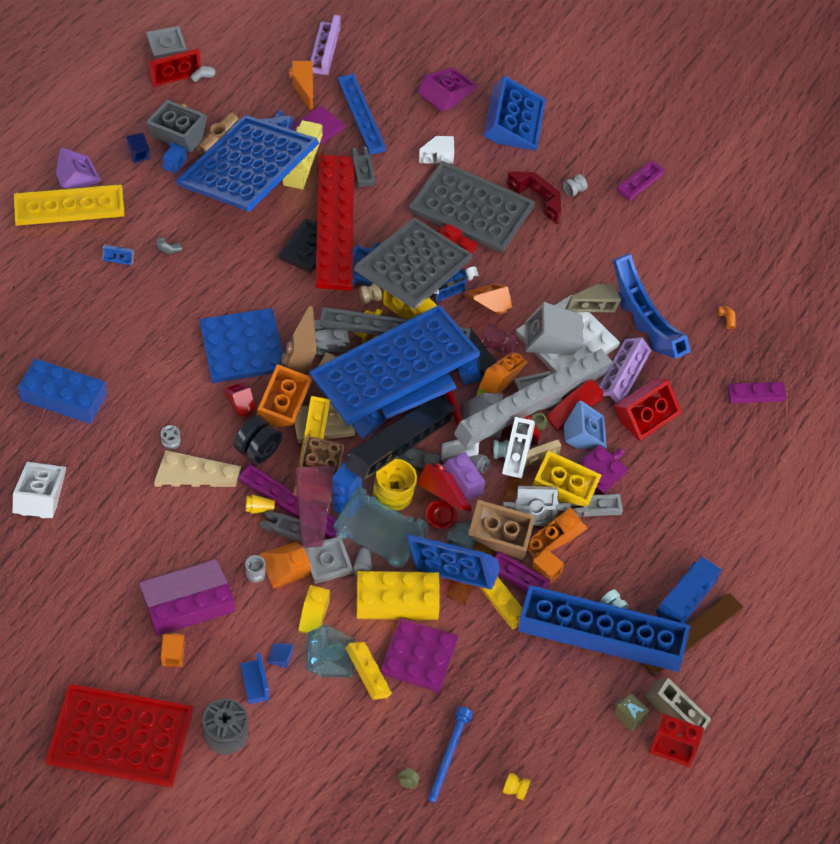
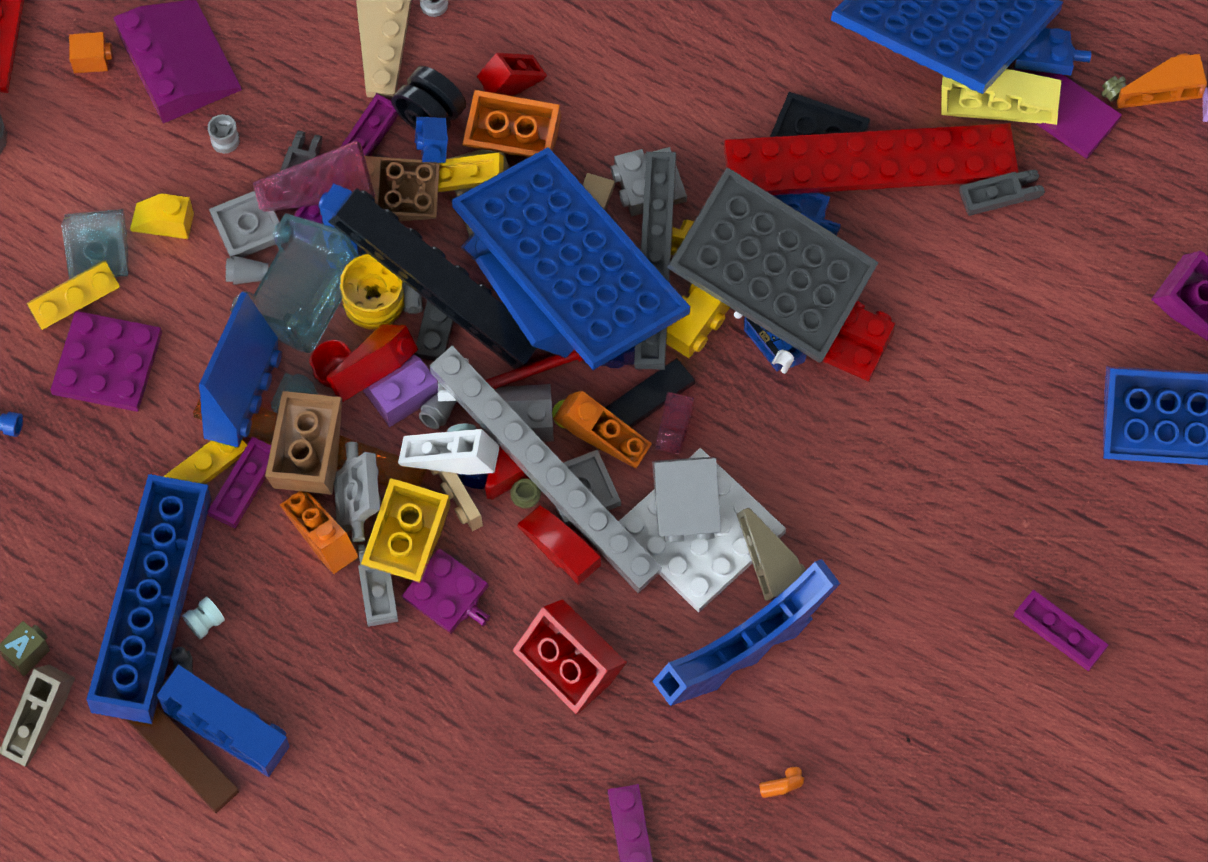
camera: 90 degrees right, 10 degrees up
(241, 345) = (615, 69): blue plate -> none
(255, 680) = (52, 159): blue panel -> none
(258, 504) = (331, 122): yellow cone -> none
(281, 654) = (94, 186): blue slope -> none
(286, 564) = (237, 170): orange slope -> none
(293, 434) = (431, 138): none -> blue brick
(302, 347) = (608, 135): medium nougat slope -> none
(303, 105) = (1112, 88): none -> olive plate
(361, 114) = (1116, 176): blue plate -> none
(398, 595) = (189, 315): yellow brick -> none
(438, 150) = (1059, 300): white slope -> none
(470, 372) = (614, 380): blue slope -> none
(472, 205) = (946, 363): dark grey plate -> none
(492, 297) = (755, 400): slope -> none
(522, 180) = (968, 490): dark red slope -> none
(547, 565) = (259, 518): orange brick -> none
(576, 185) = (1024, 521): light grey wheel -> none
(585, 428) = (518, 563): medium blue slope -> none
(627, 369) = (642, 621): lavender fence -> none

